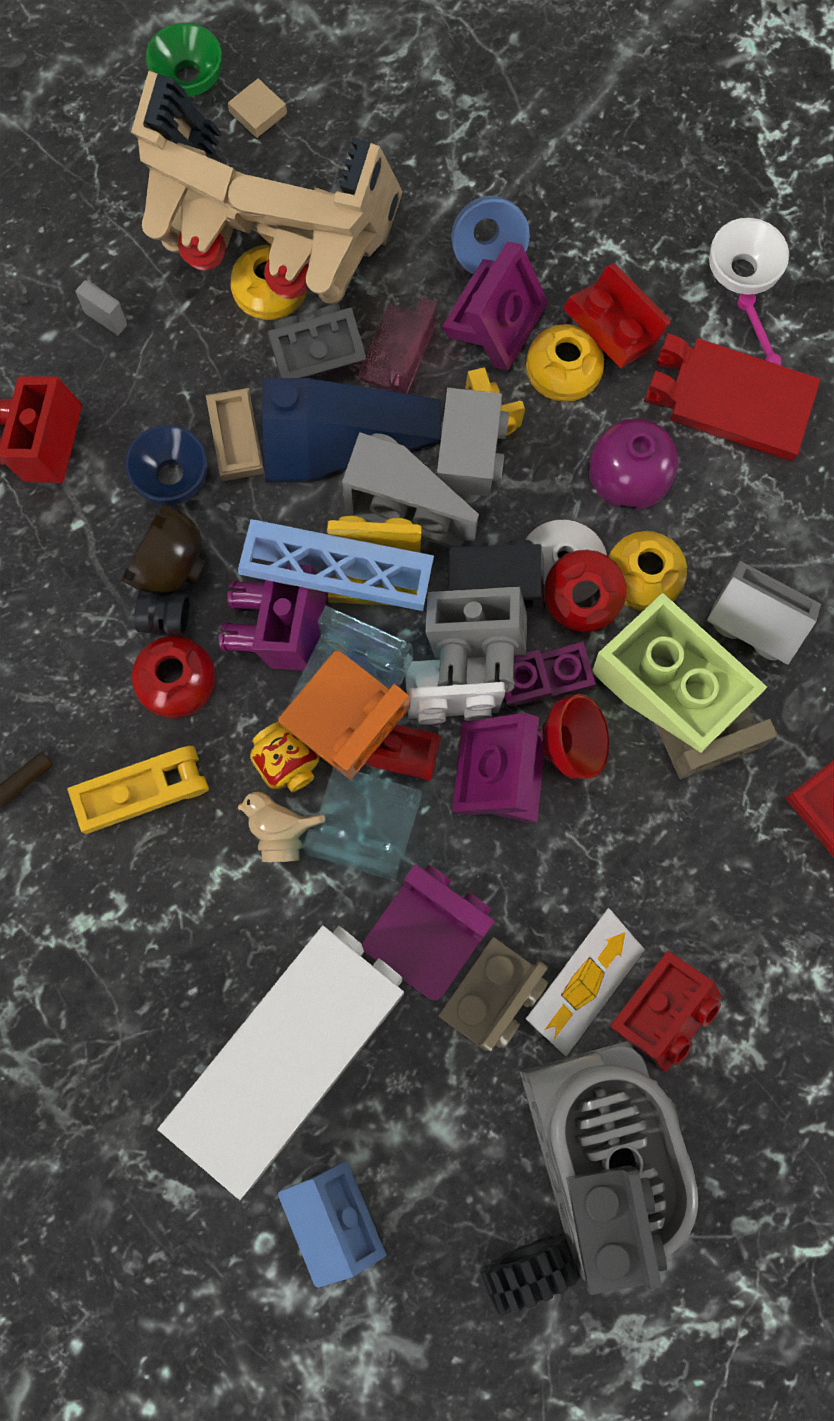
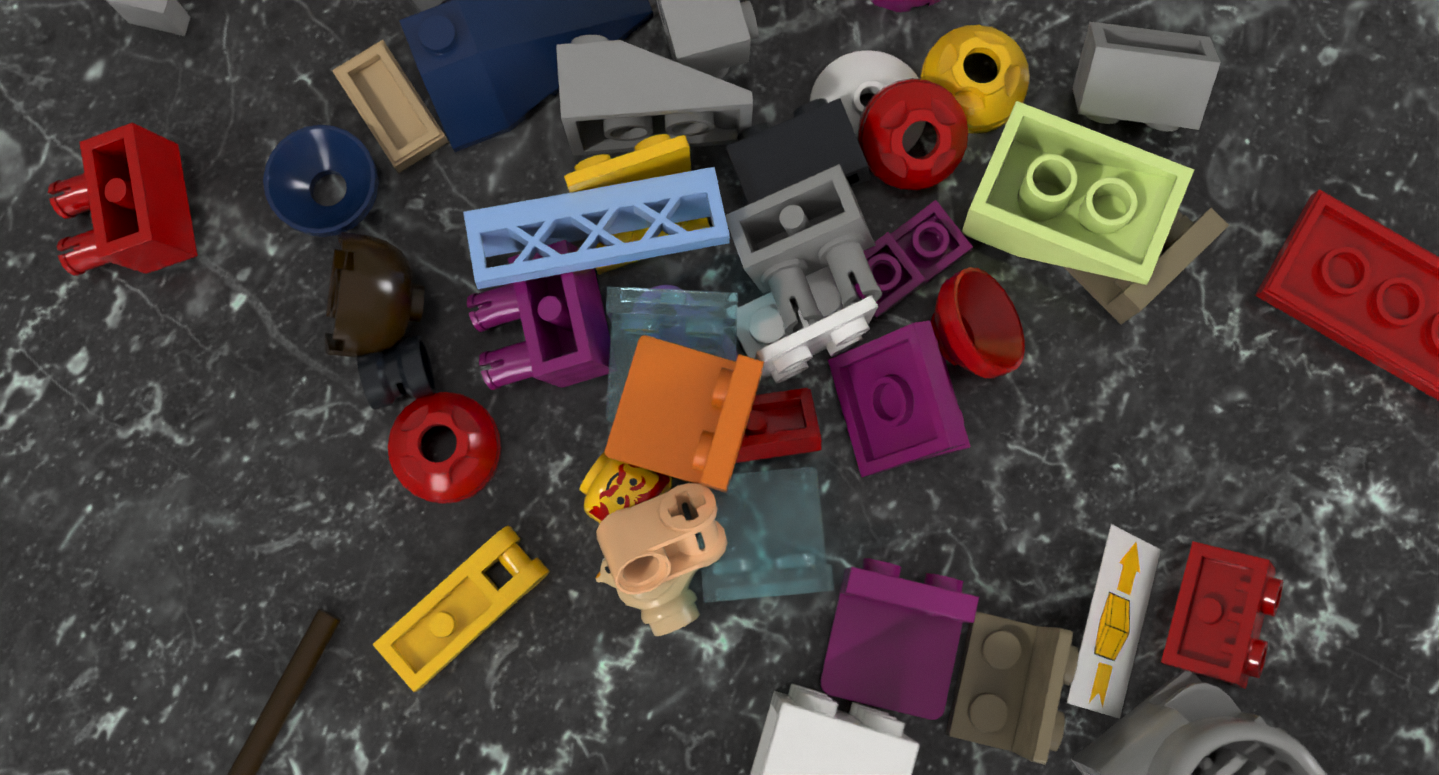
camera: 20 degrees left, 5 degrees up
(289, 793) = (657, 543): none -> light nougat piece

